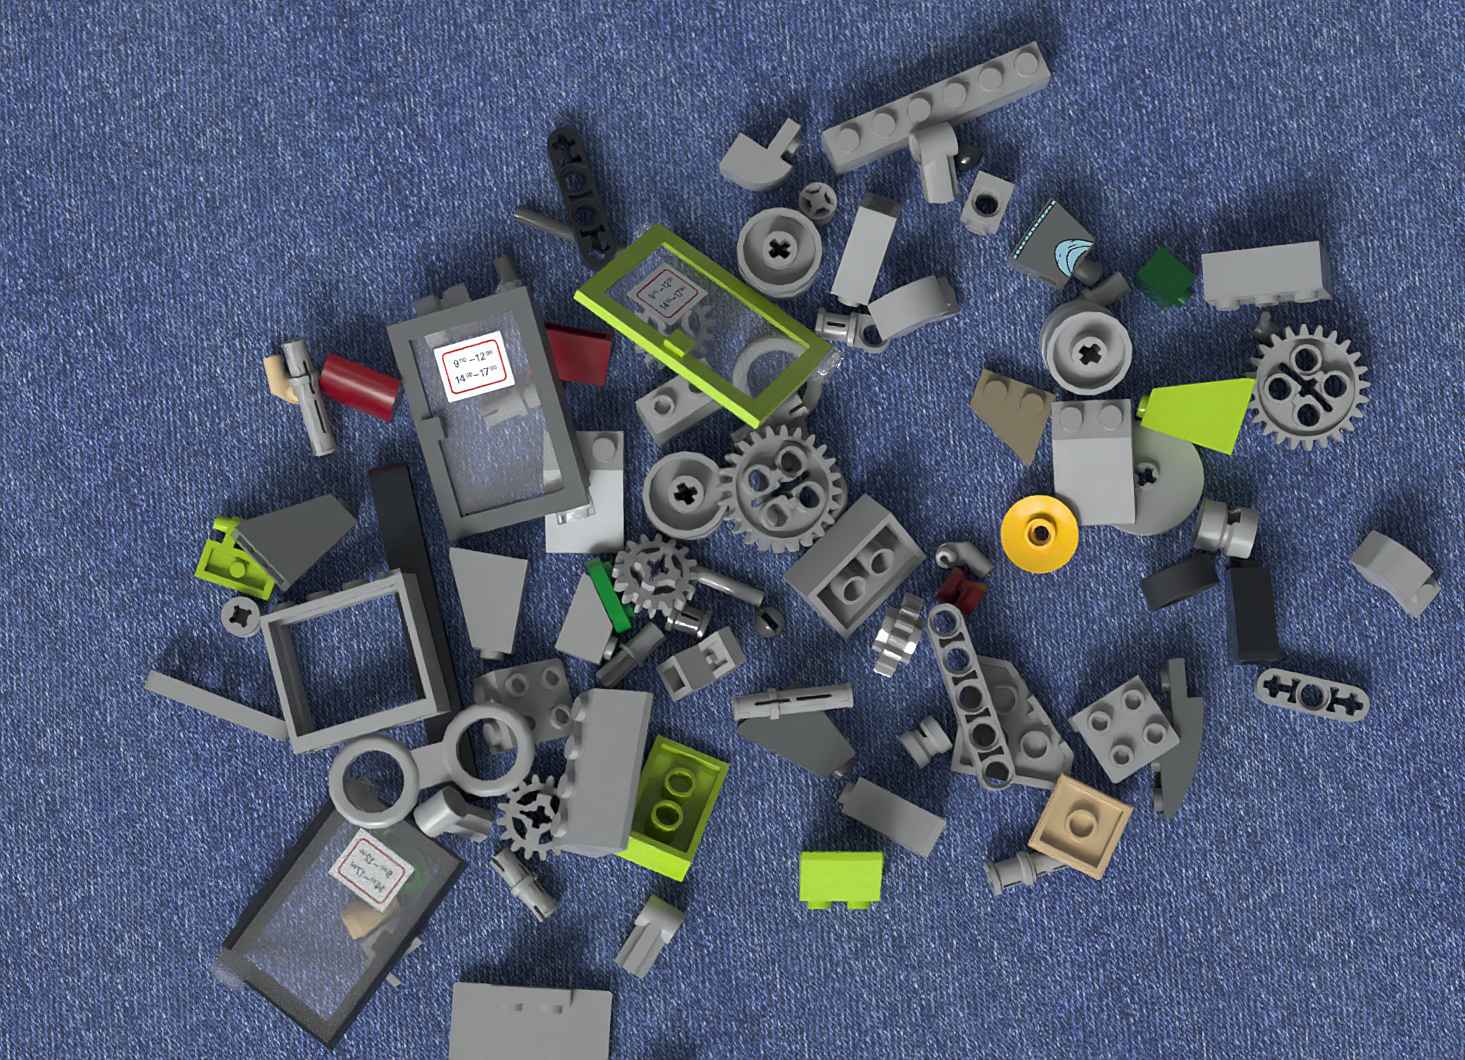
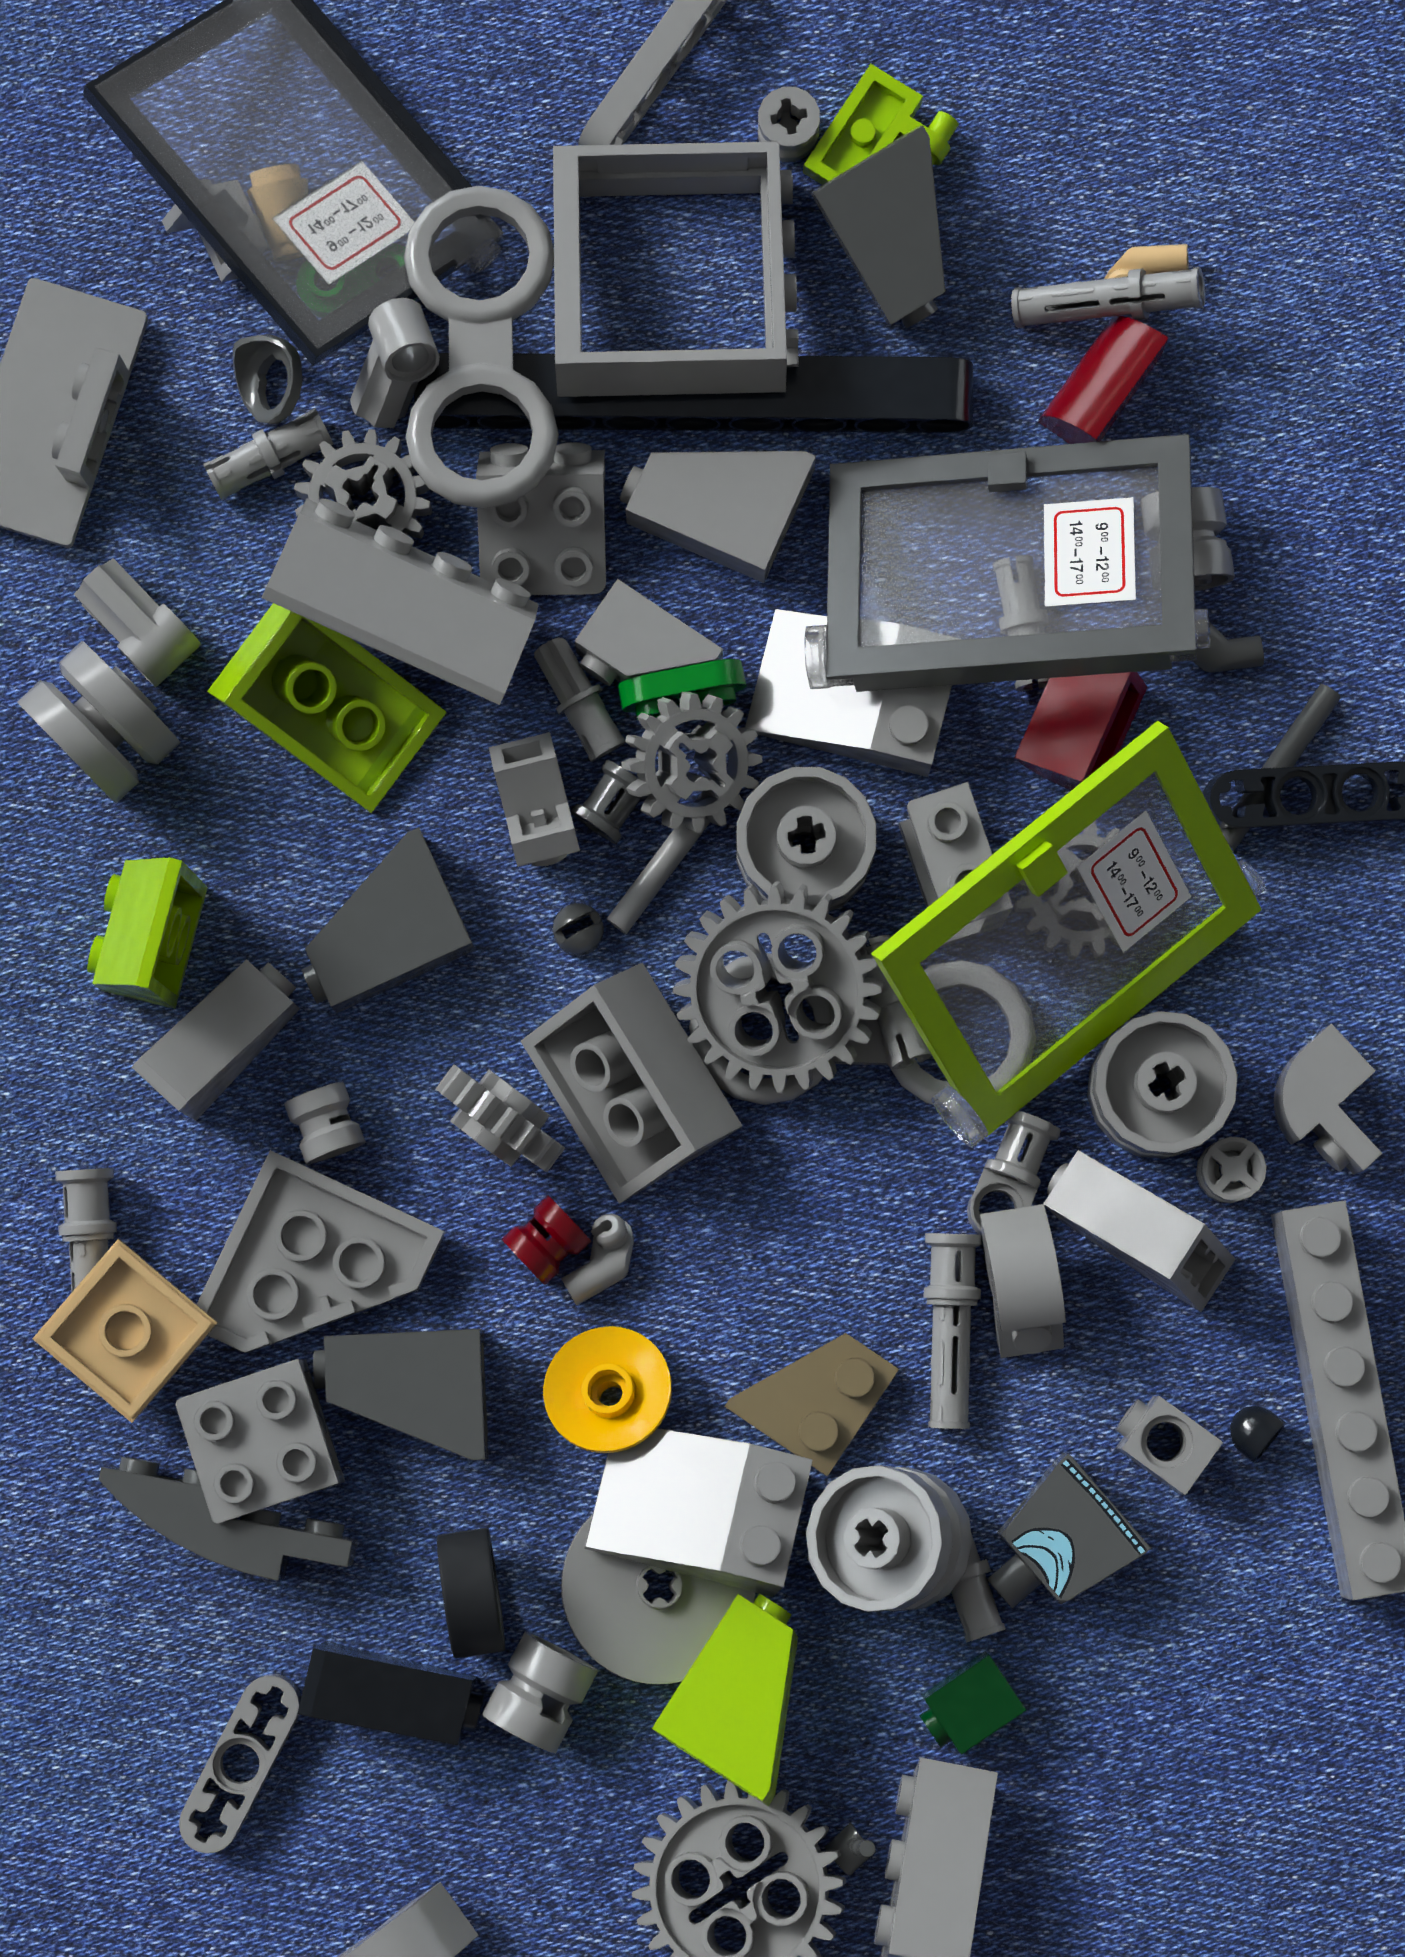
camera: 105 degrees right, 0 degrees up
(472, 910) = (251, 363): none -> dark grey piece
(720, 939) = (100, 720): none -> light grey wheel
(745, 705) = (447, 845): light grey pin -> none
(933, 153) = (1265, 1374): light grey piece -> none
(933, 347) = (952, 1295): none -> light grey pin
(970, 677) = (339, 1199): light grey beam -> none
(1066, 650) = (413, 1383): none -> dark grey slope

